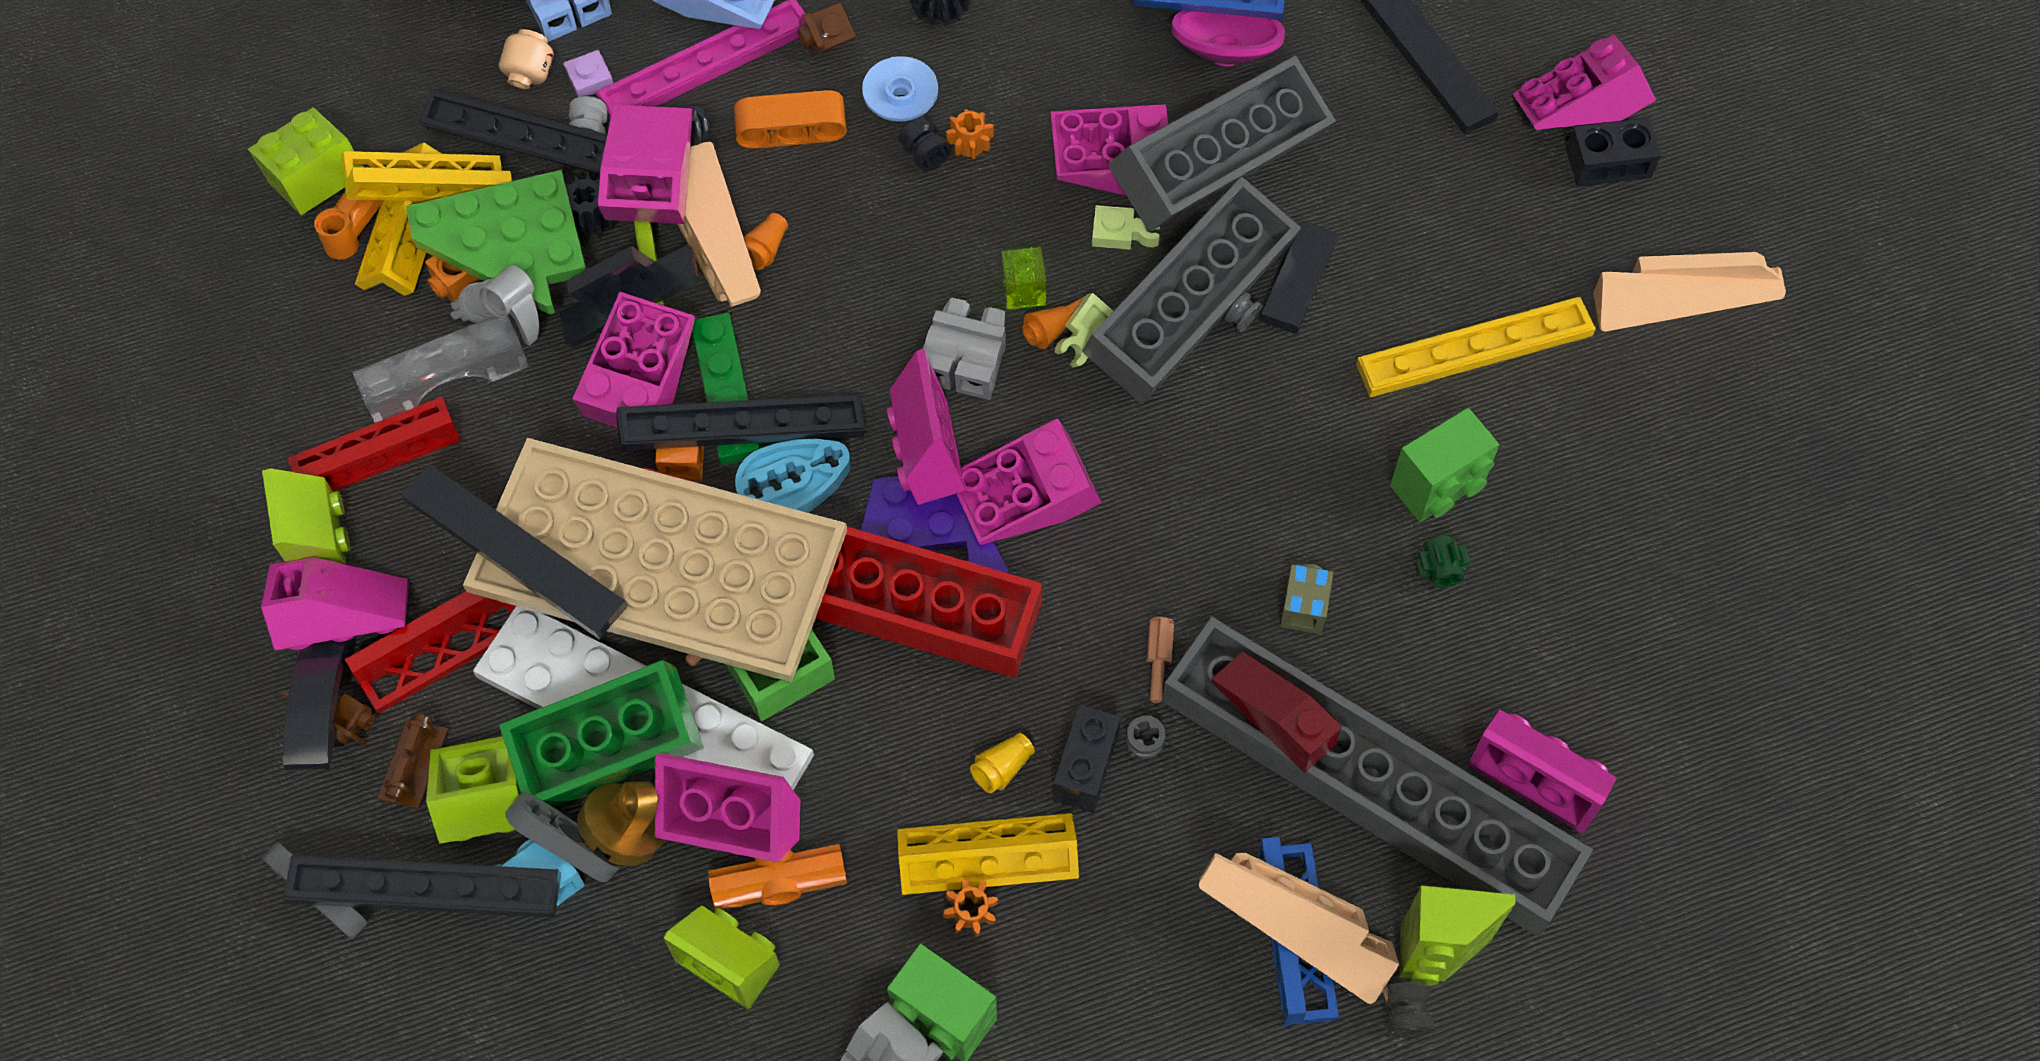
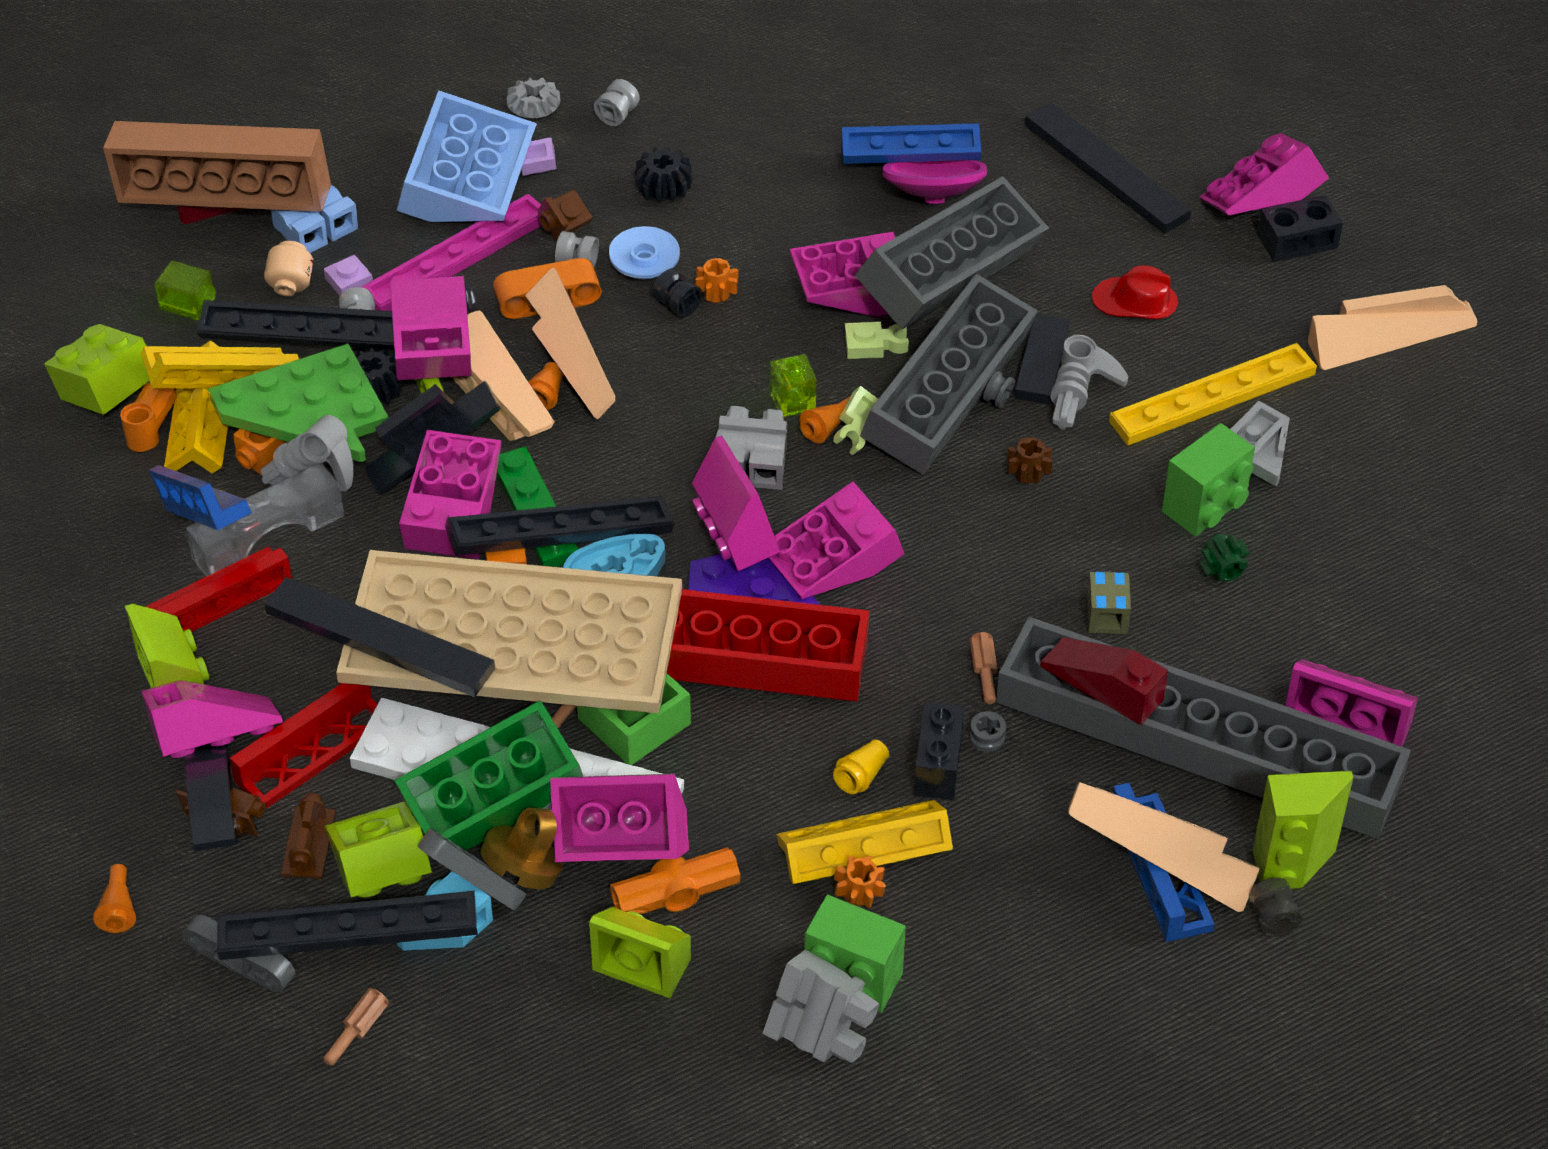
camera: 10 degrees left, 15 degrees down
(202, 814) = (115, 908): none -> orange cone
(372, 345) = (197, 499): none -> blue fence
(414, 70) = (183, 289): none -> clear neon green brick
(419, 992) = (358, 1022): none -> nougat axle
(792, 199) = (568, 343): none -> light nougat wedge
(826, 75) = (572, 247): none -> light grey wheel
(1258, 407) = (1029, 460): none -> reddish brown gear
(1327, 308) = (1078, 363): none -> light grey piece
(1417, 211) = (1138, 293): none -> red piece
(1514, 416) = (1267, 432): none -> light grey wing

